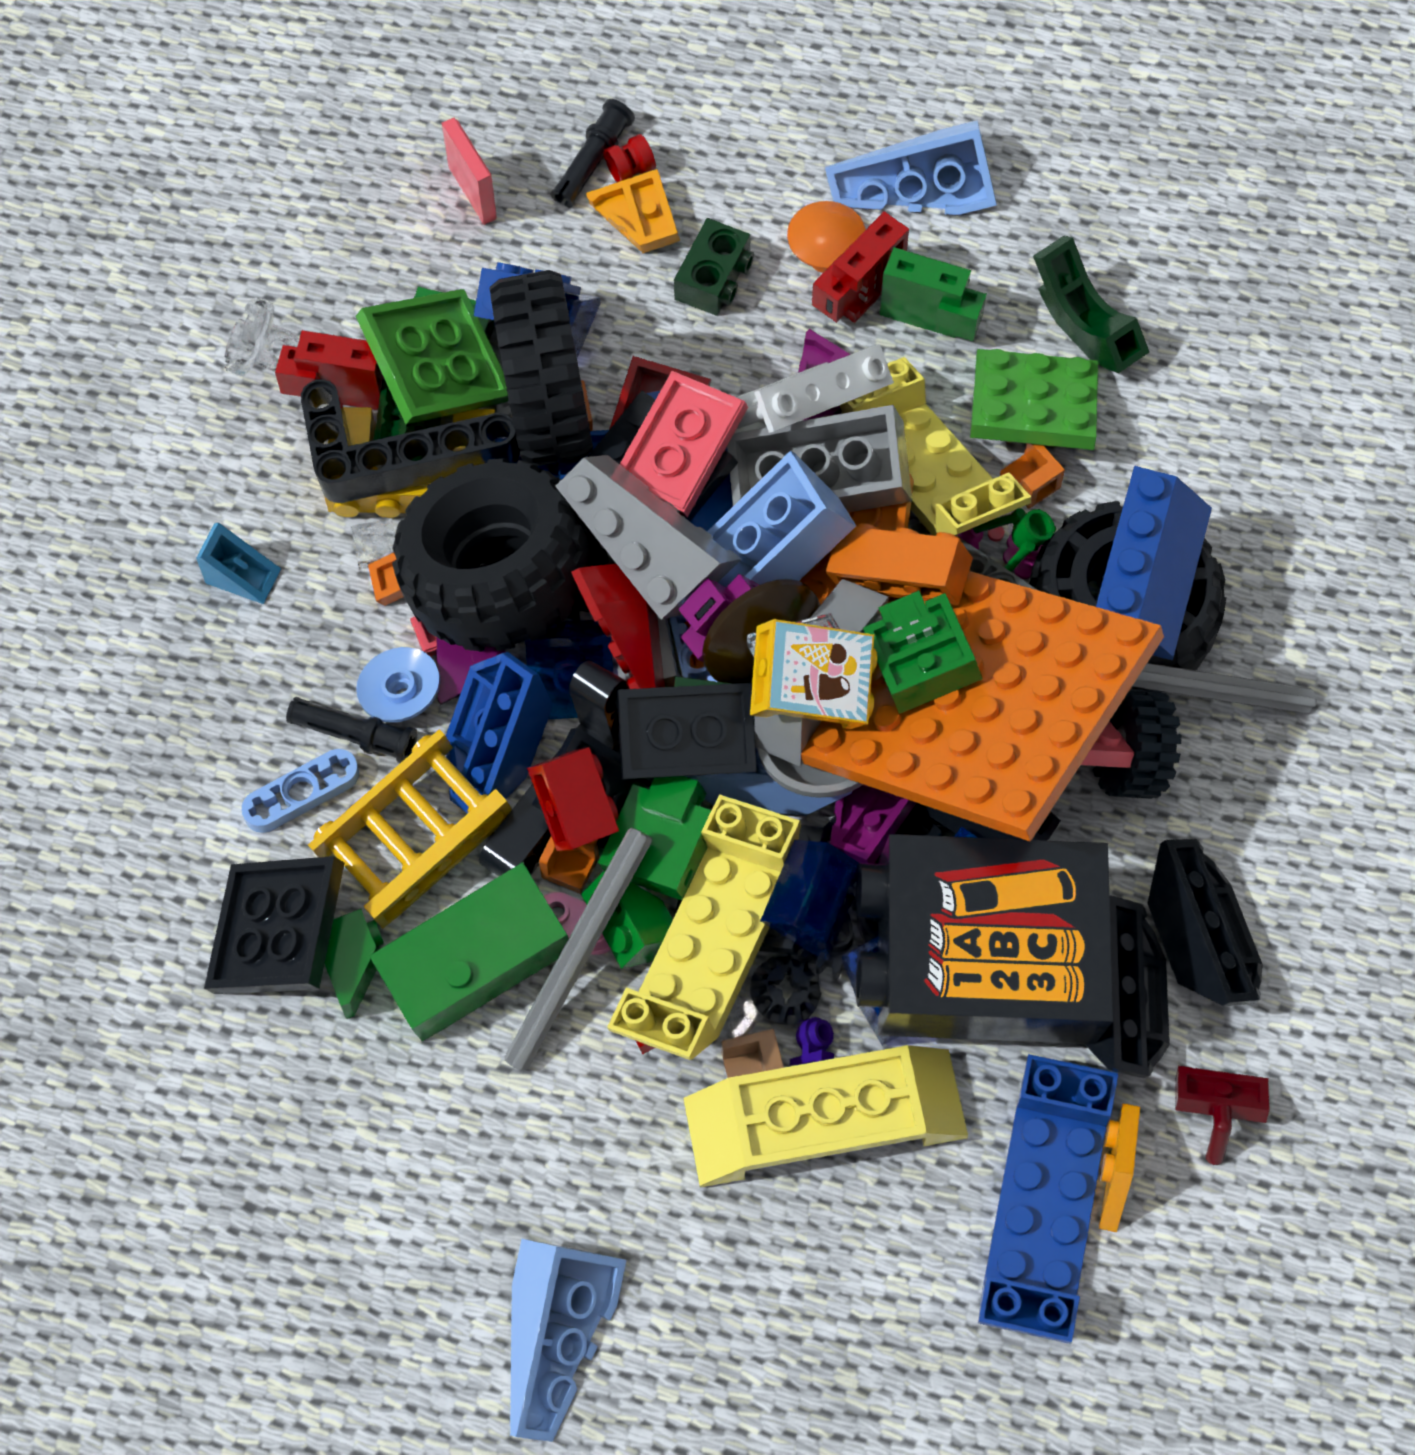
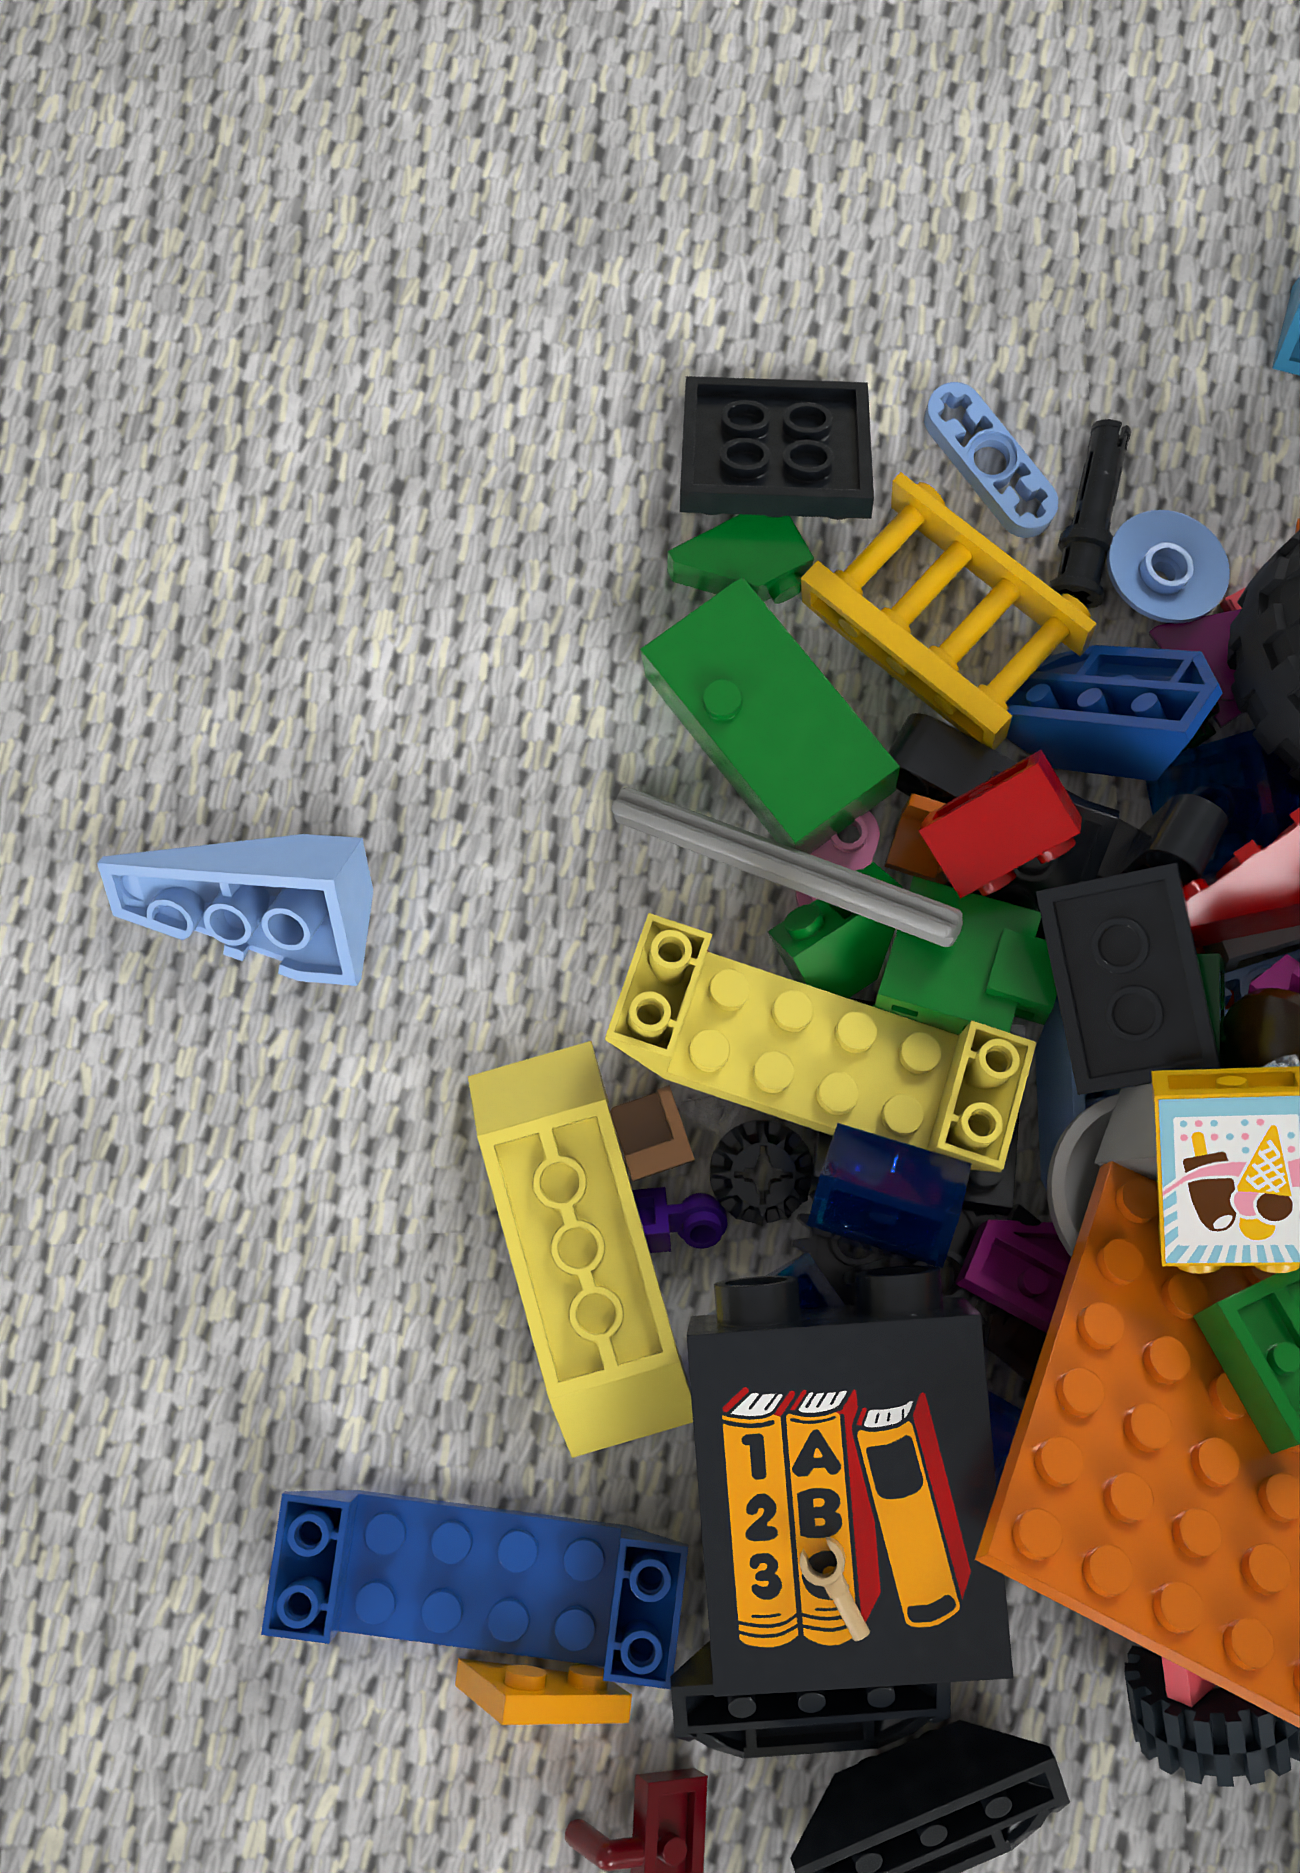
camera: 85 degrees right, 15 degrees up
(1047, 937) = (837, 1589): none -> tan hand

